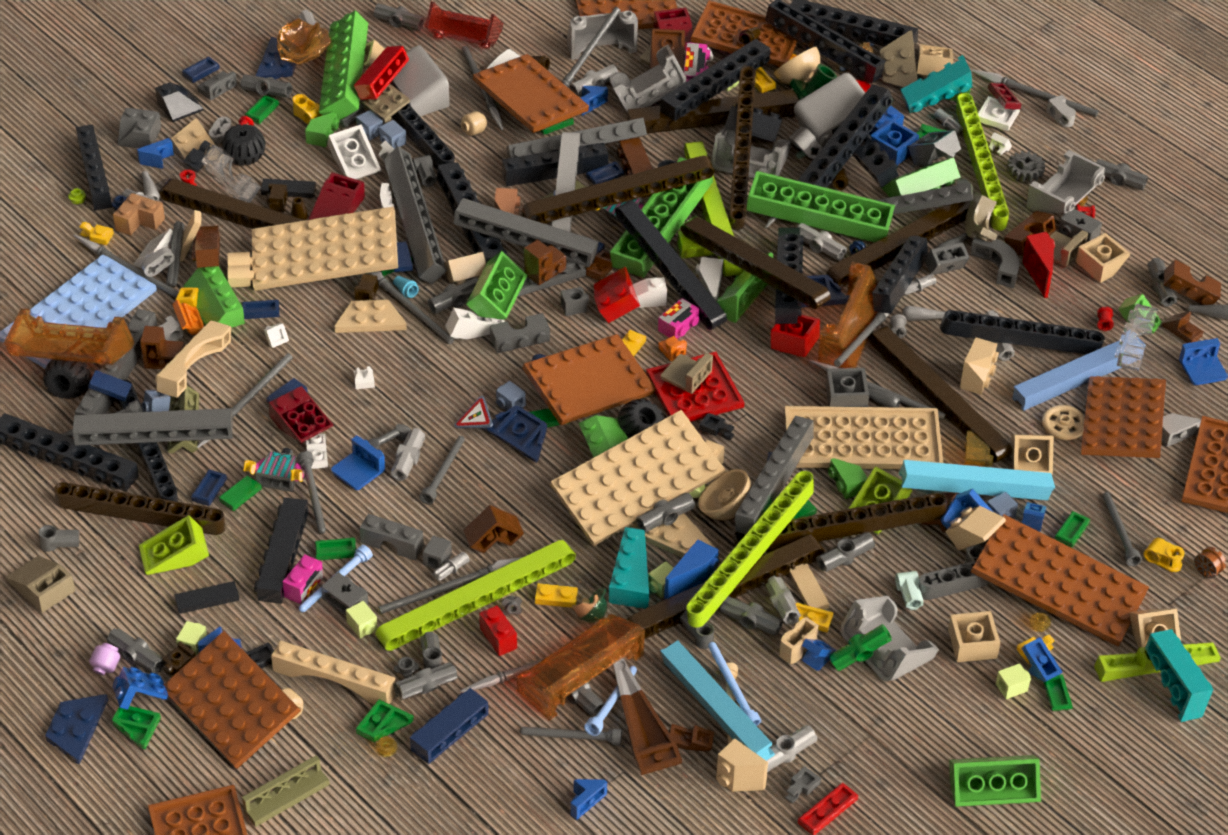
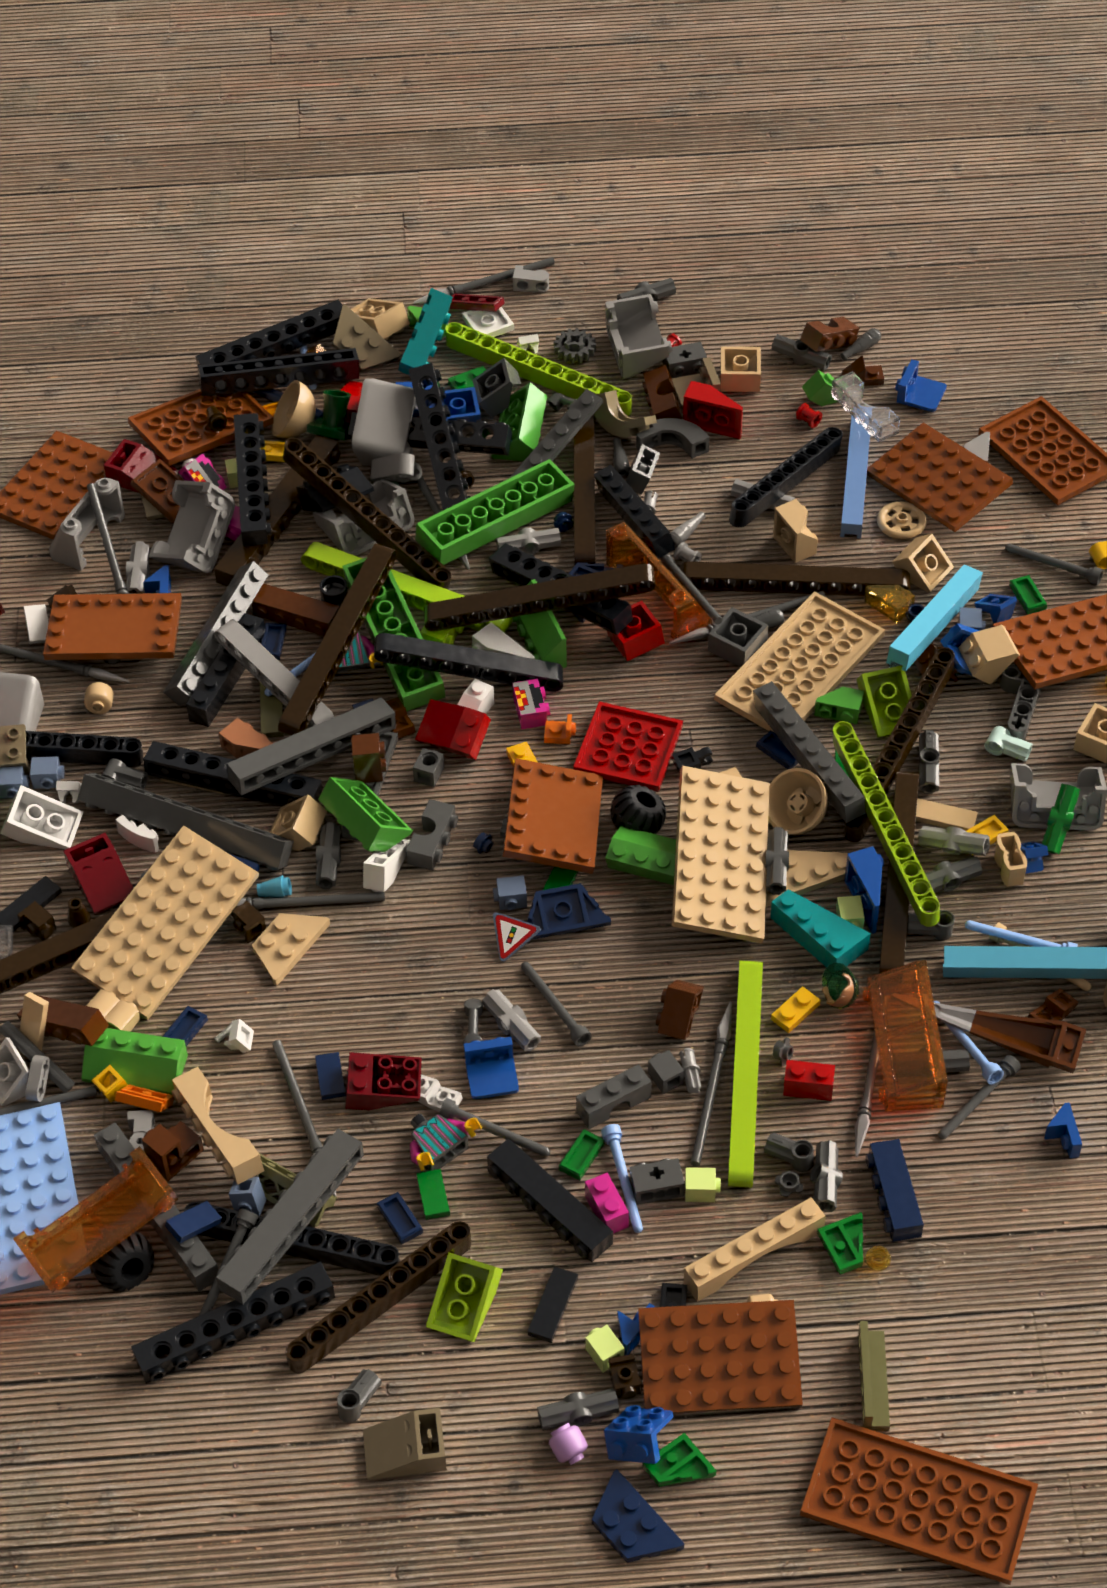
camera: 50 degrees left, 5 degrees up
(364, 378) = (369, 997): white tile -> none
(687, 372) = (614, 737): dark tan bracket -> none
(948, 120) = (462, 359): light grey axle -> none

